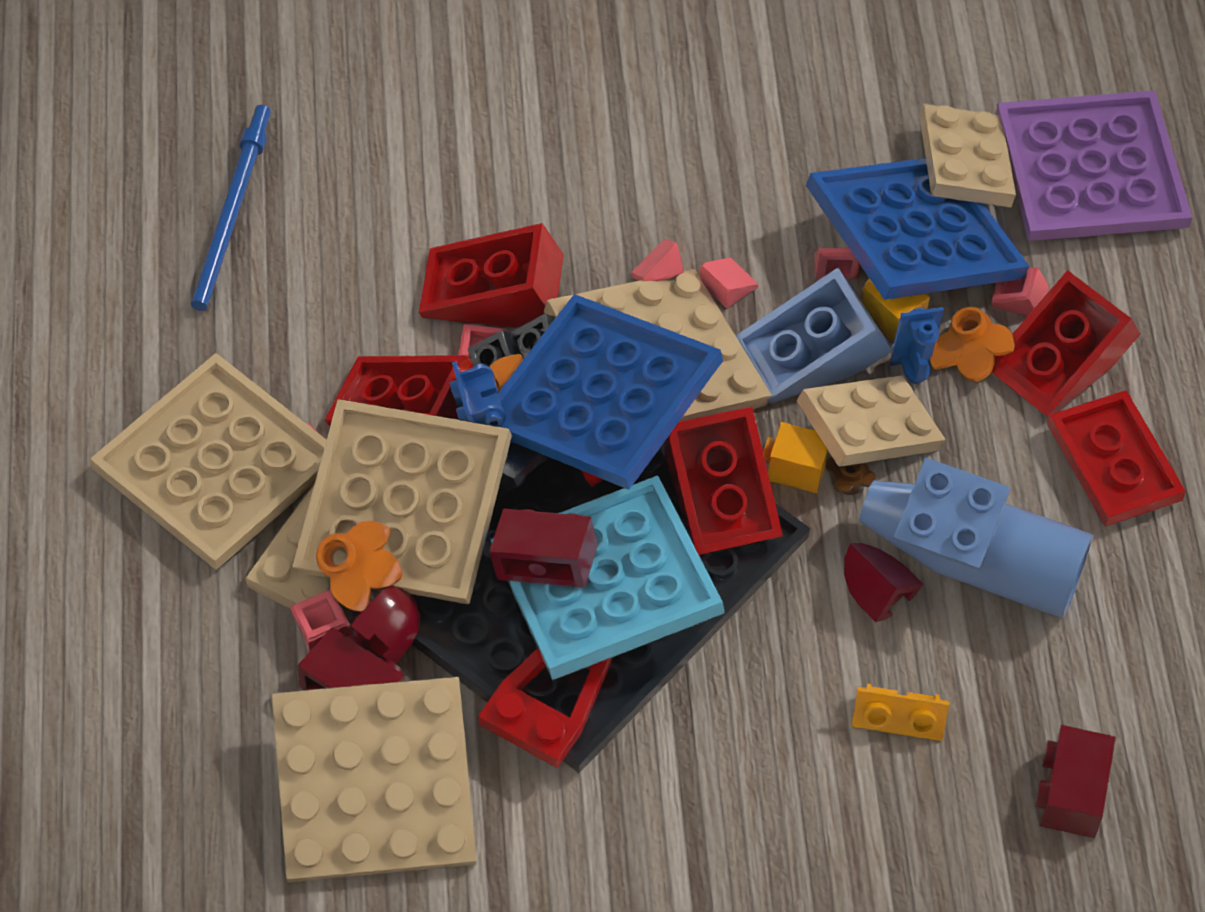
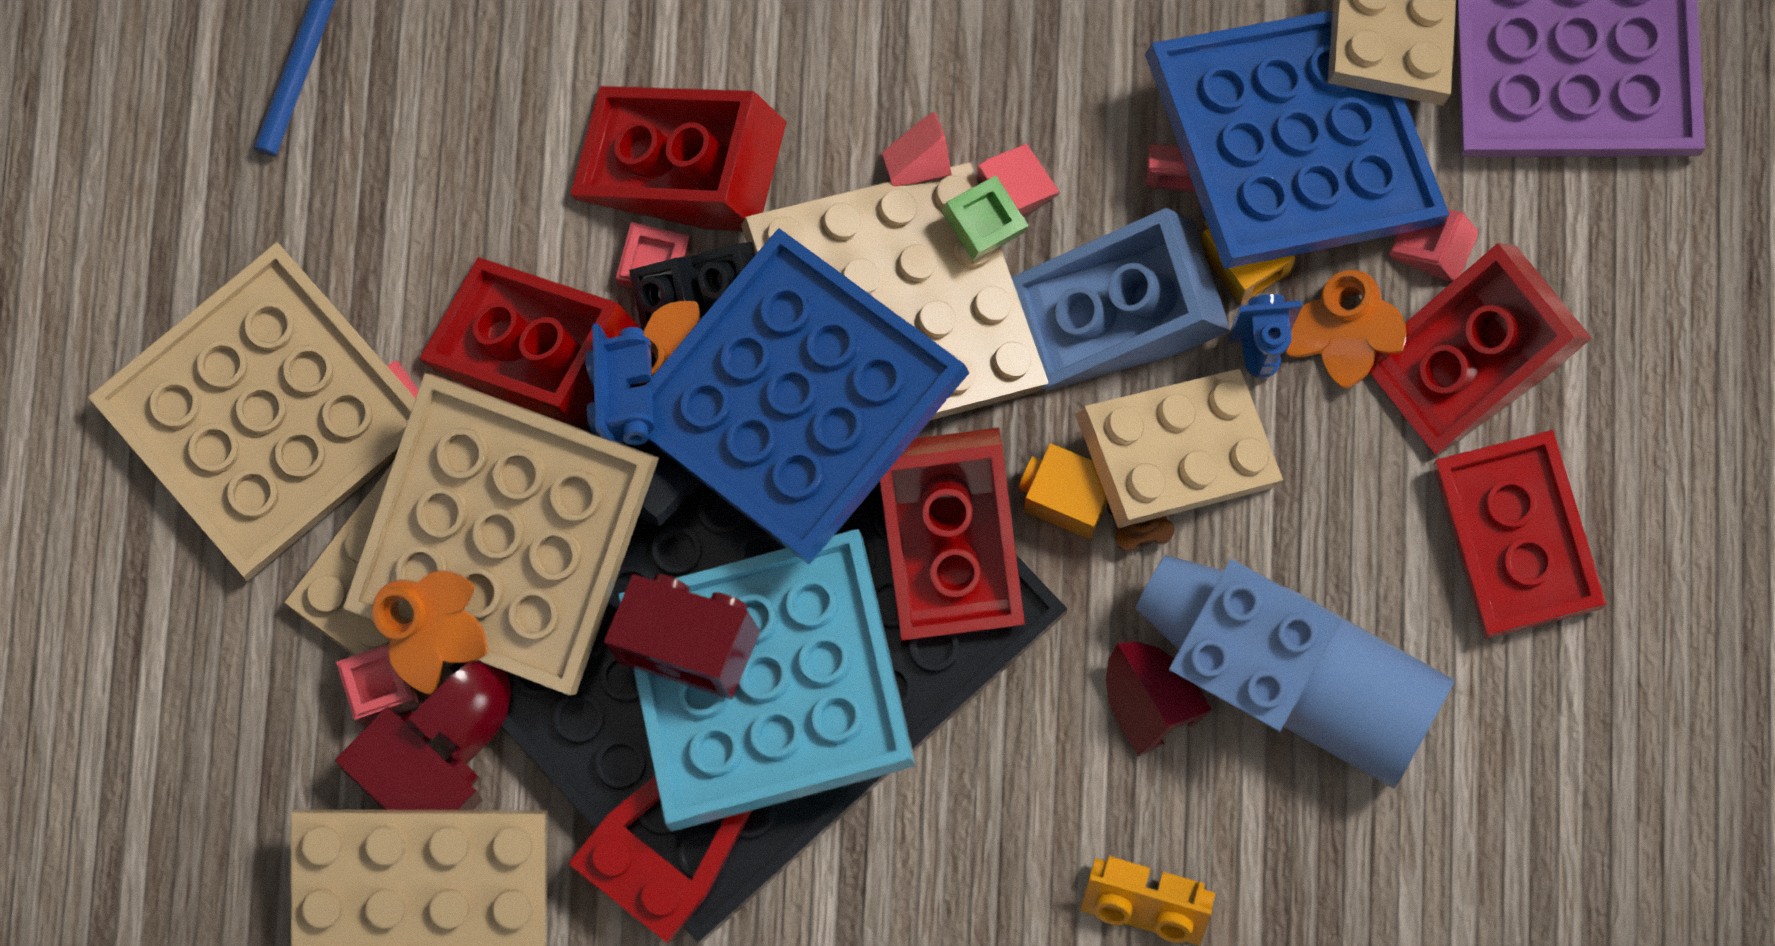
camera: 10 degrees right, 20 degrees up
(712, 291) = (984, 218): none -> bright green plate

